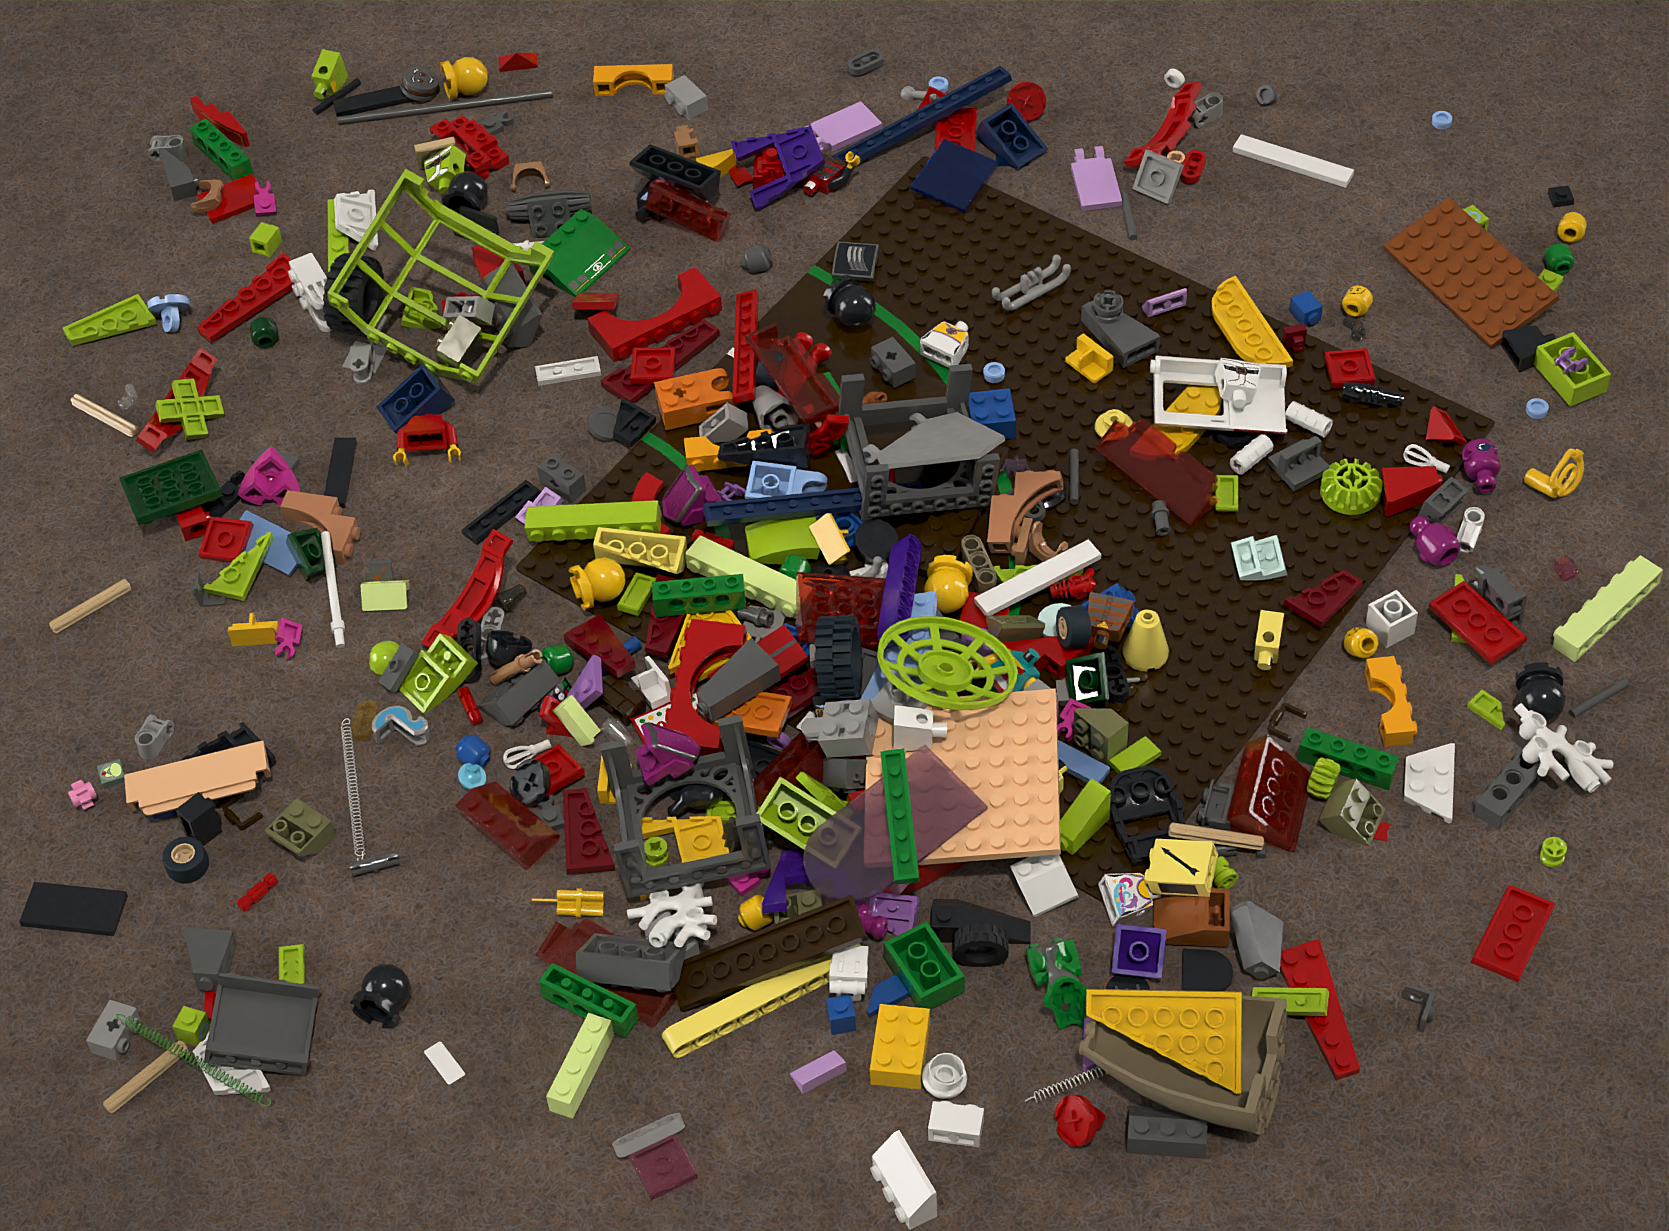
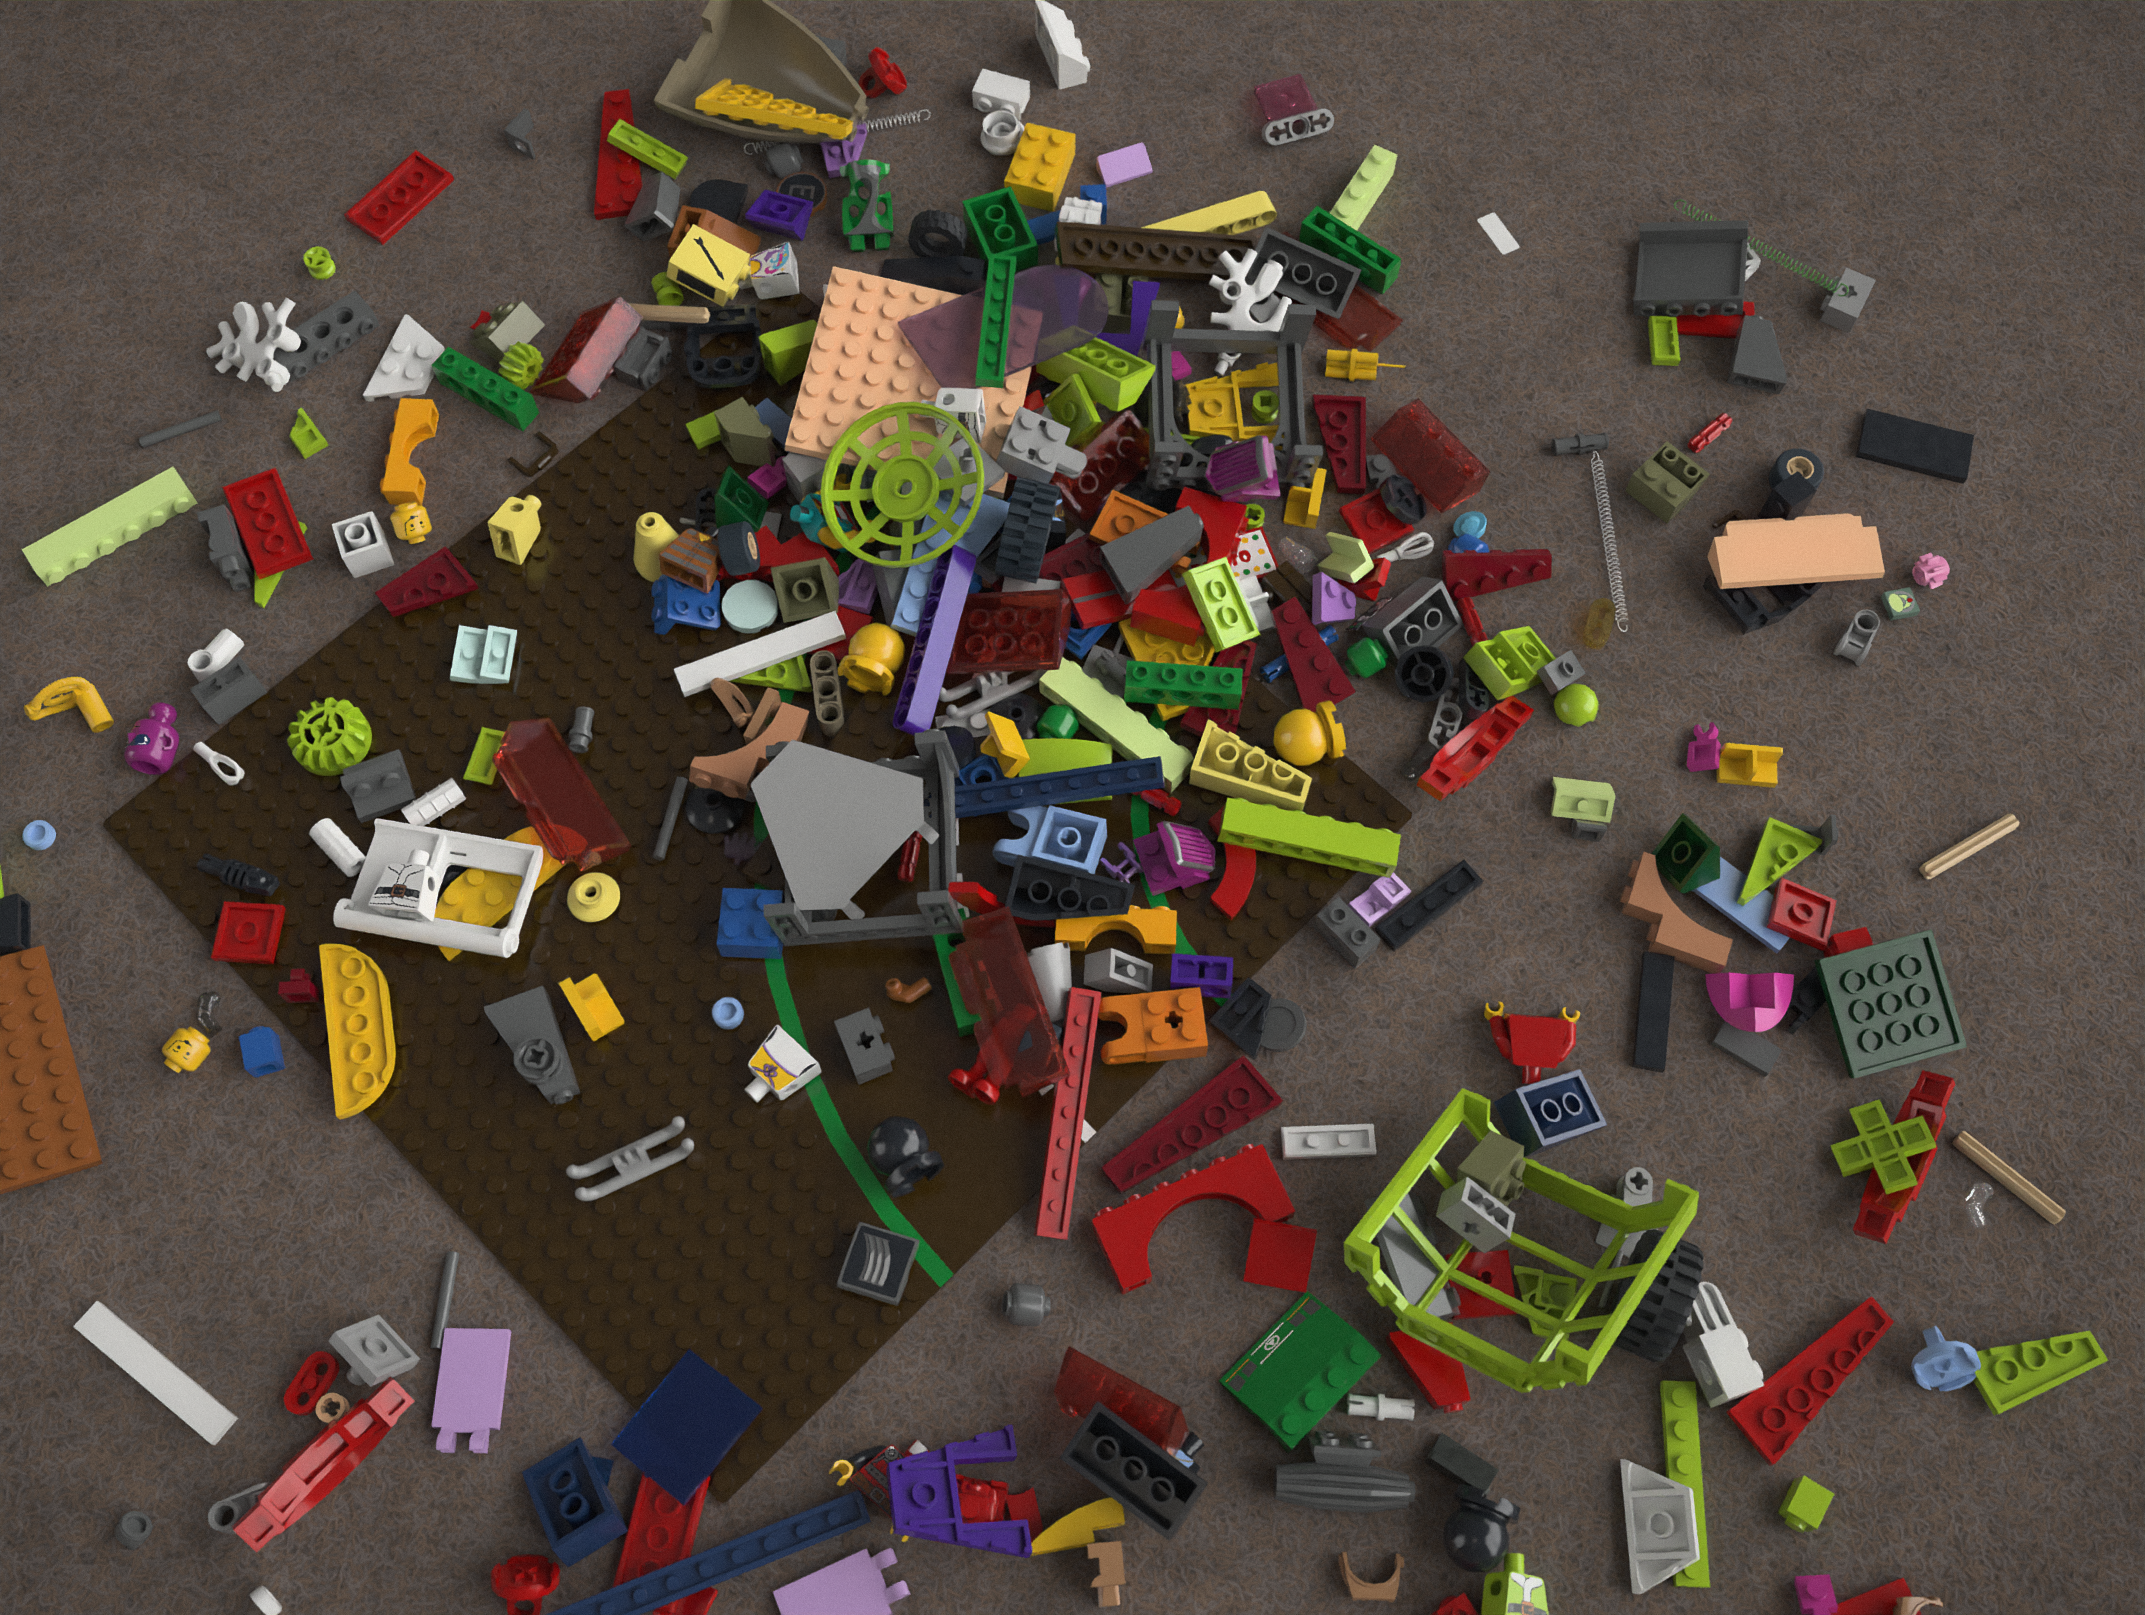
camera: 175 degrees left, 15 degrees up
(143, 1078) = (1806, 256): tan axle -> none
(191, 1026) = (1765, 288): lime brick -> none
(264, 332) = (1787, 1293): dark green head -> none
(337, 624) = (1641, 761): white bar -> none
(382, 995) = (1566, 280): black tile -> none
(401, 720) = (1552, 605): light grey animal -> none
(457, 732) = (1482, 573): none -> dark red wing
(522, 663) = (1409, 627): medium nougat pin -> none
(636, 594) = (1261, 728): lime tile -> none
(652, 365) = (1205, 1107): red tile -> none
(663, 426) = (1209, 973): none -> dark purple brick
(675, 647) = (1220, 604): none -> lime tile
(1077, 586) = (711, 642): red piece -> none
(1165, 302) = (452, 1094): lavender slope -> none
(1407, 487) = (260, 716): red slope -> none
(1435, 541) = (264, 639): magenta piece -> none
(1443, 428) = (173, 805): red slope -> none
(1541, 689) = (242, 422): black tile -> none
(1565, 567) = (129, 587): clear pink piece -> none

